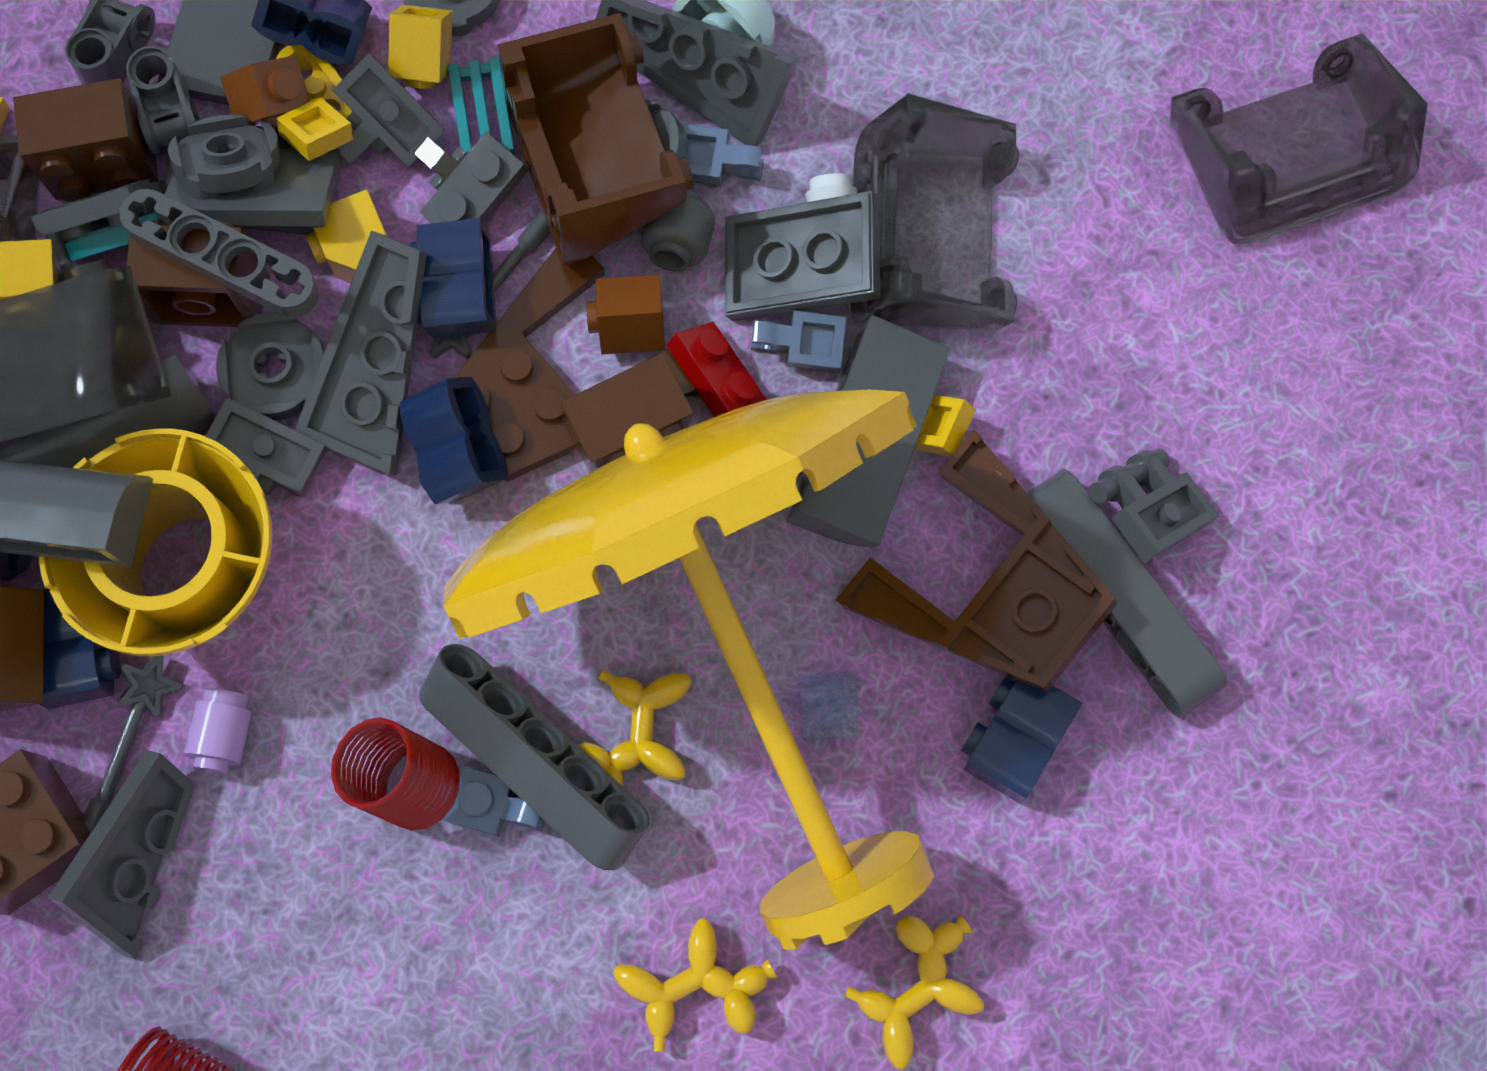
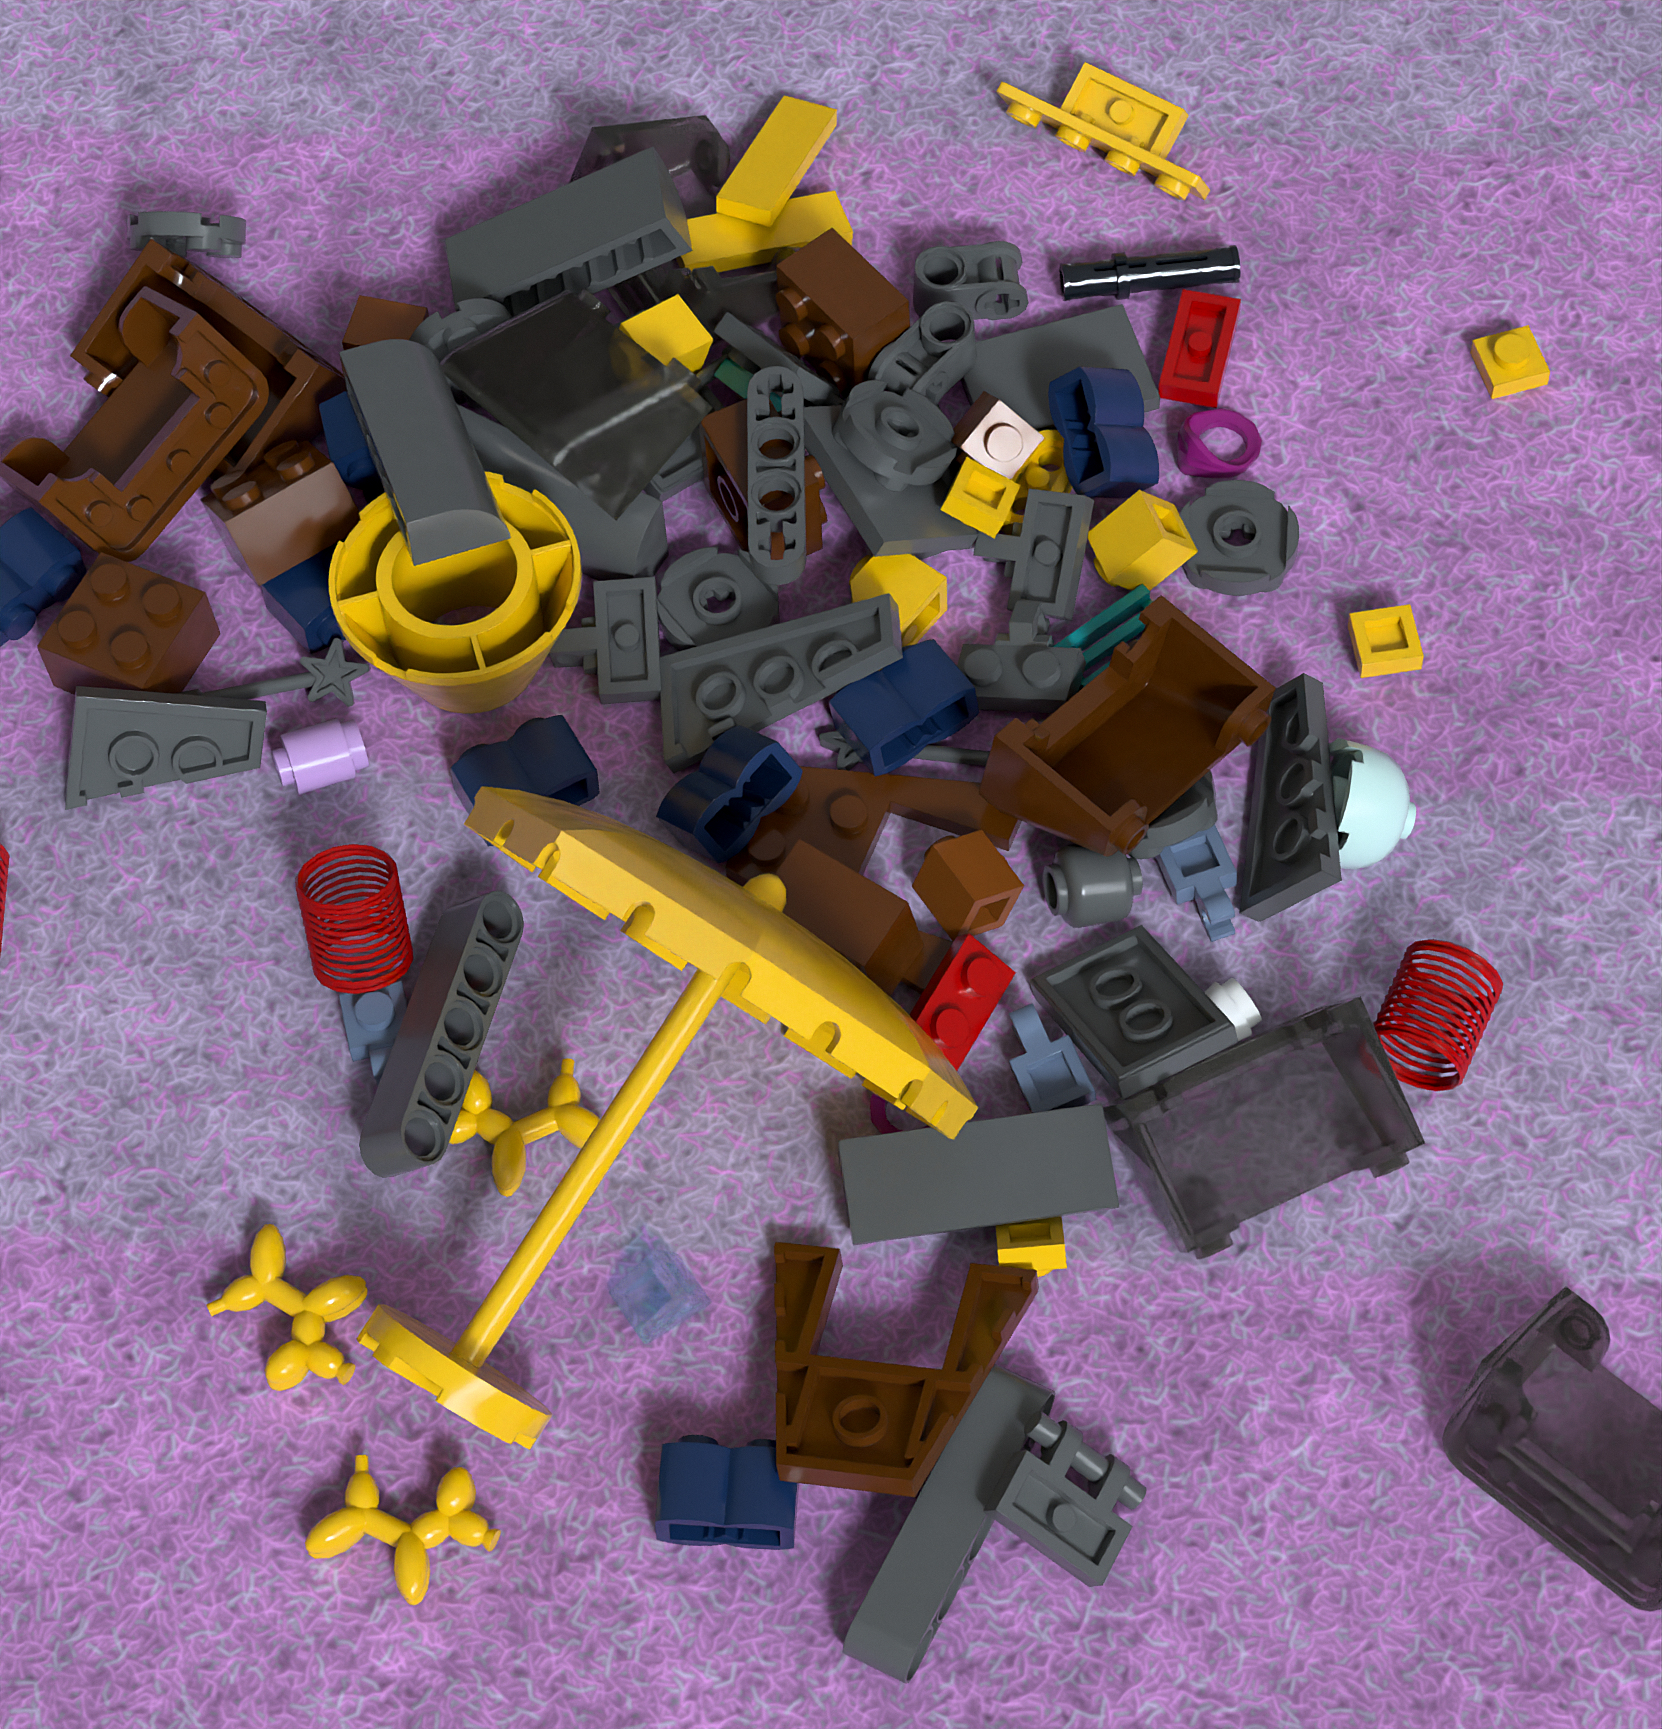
camera: 65 degrees right, 15 degrees down
(337, 585) = (537, 759): none -> dark blue brick
(918, 66) = (1443, 997): none -> red piece

